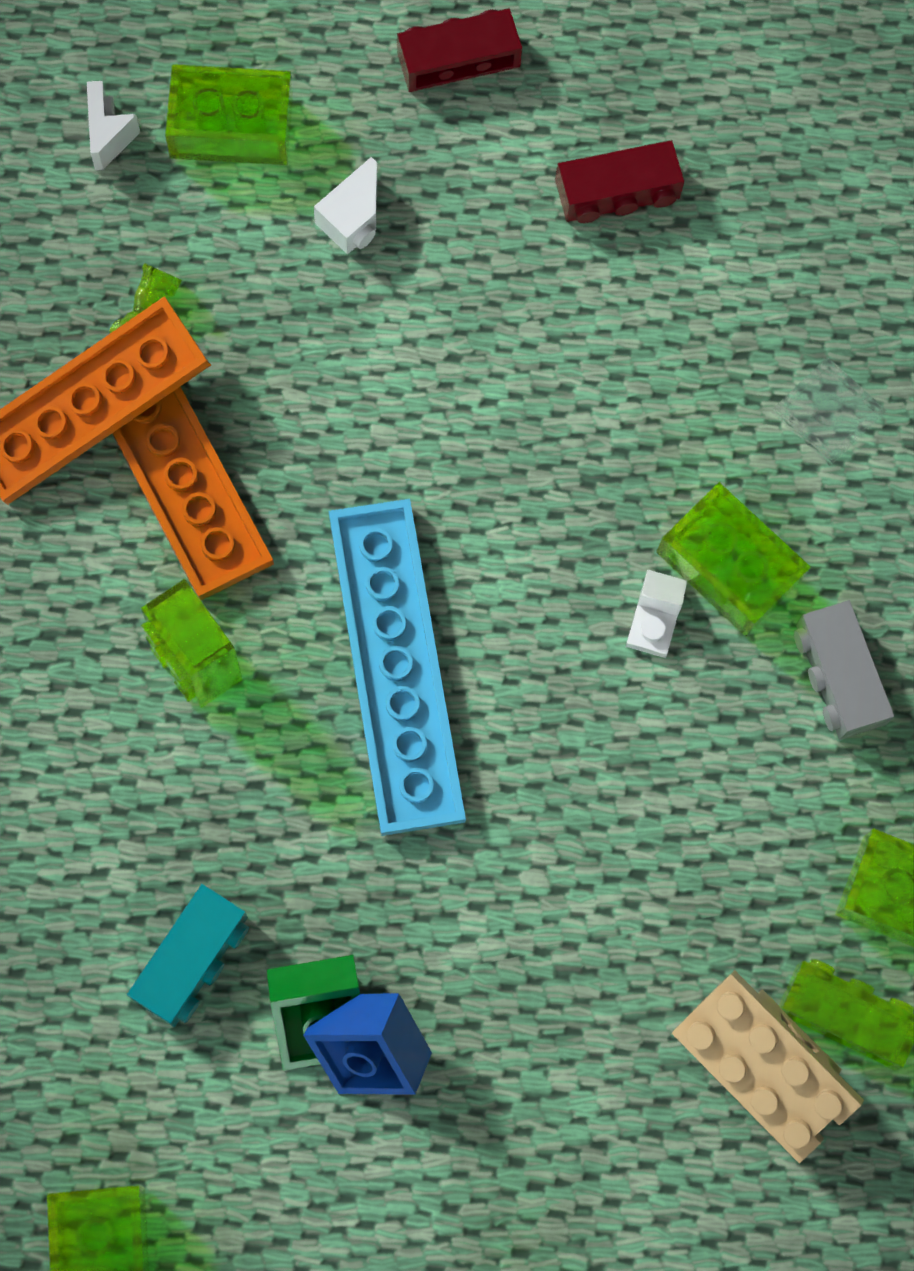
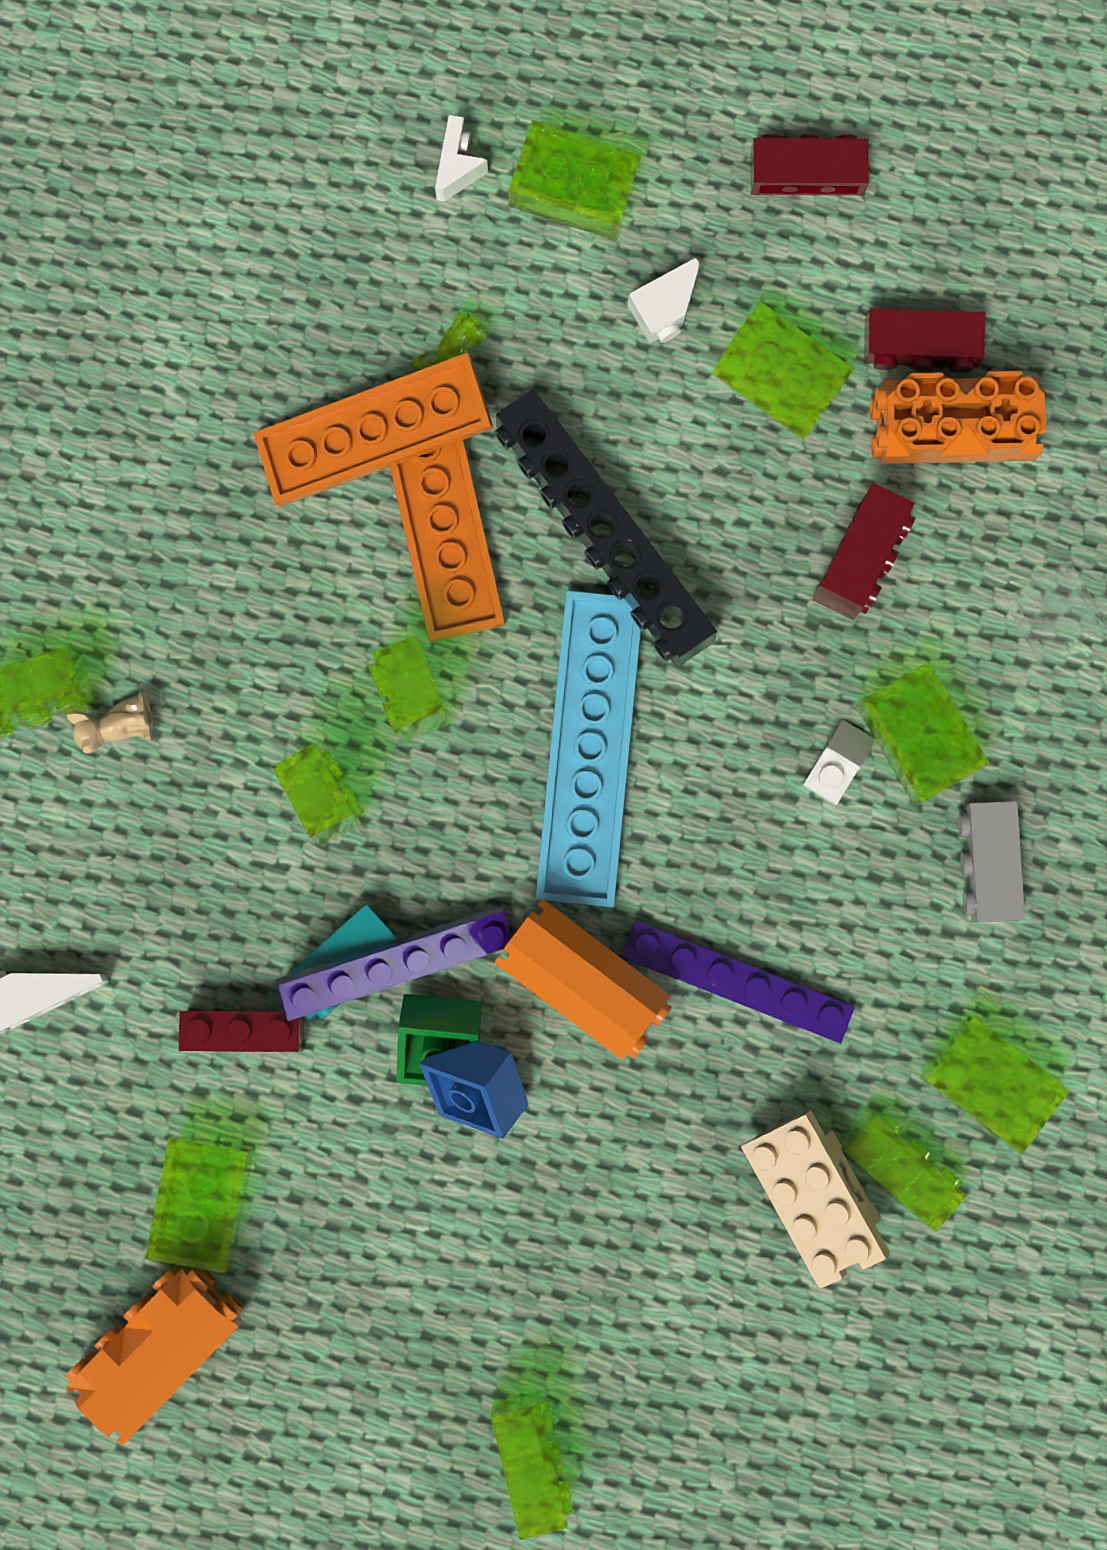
camera: 20 degrees right, 10 degrees up
(99, 1058) = (239, 1031): none -> dark red brick
(121, 777) = (315, 791): none -> clear neon green brick
(245, 938) = (393, 963): none -> plate
(249, 350) = (533, 417): none -> black brick
(455, 901) = (584, 981): none -> orange brick
(488, 245) = (782, 371): none -> clear neon green slope
(617, 864) = (737, 982): none -> dark purple plate
(623, 395) = (866, 552): none -> dark red brick
(676, 246) = (958, 419): none -> orange brick

